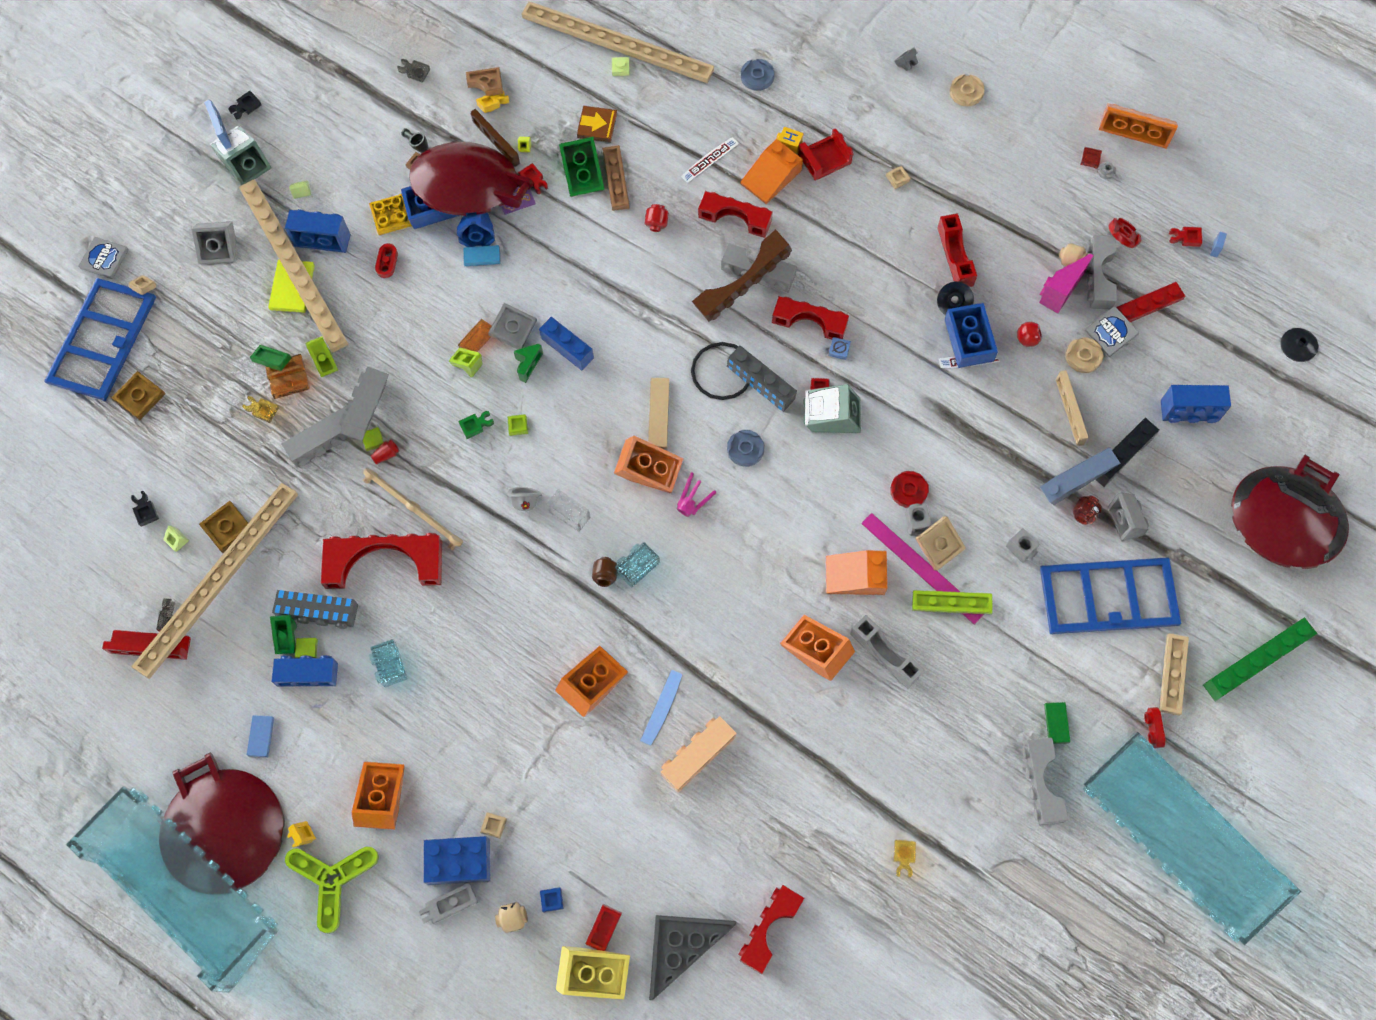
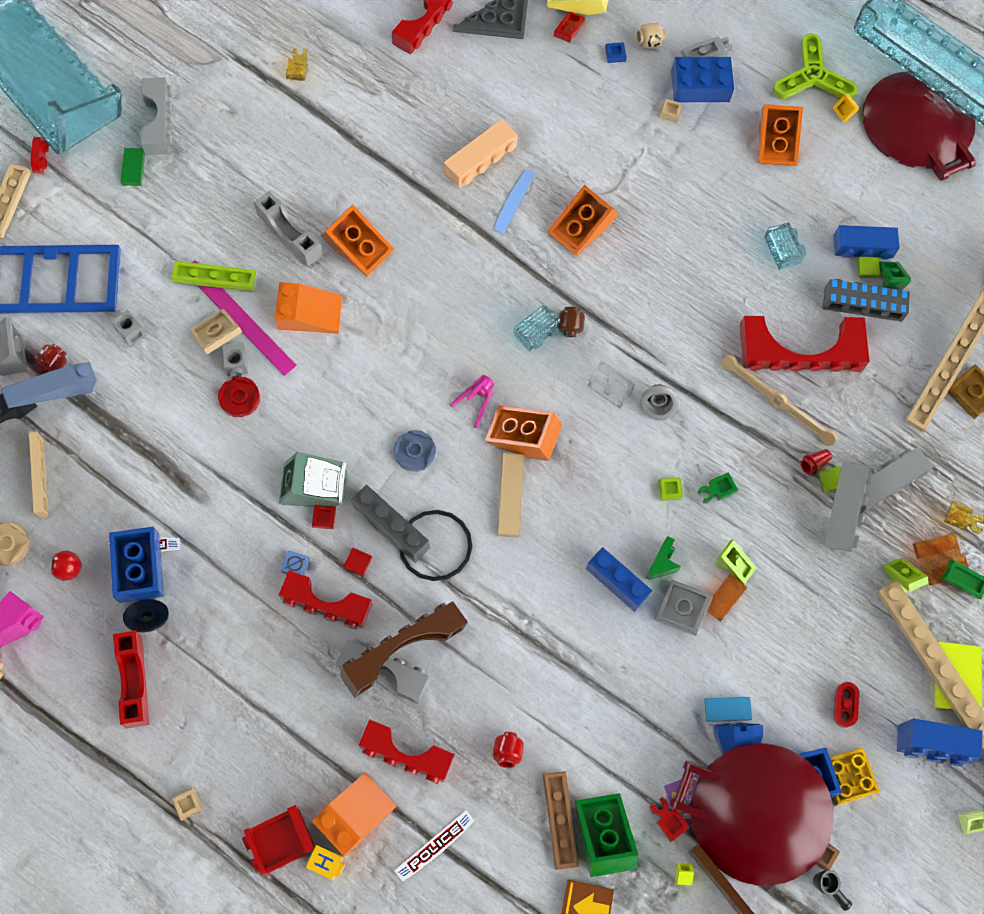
camera: 175 degrees right, 0 degrees up
(260, 736) = (899, 192): medium blue tile -> none
(787, 352) = (357, 562): none -> red tile

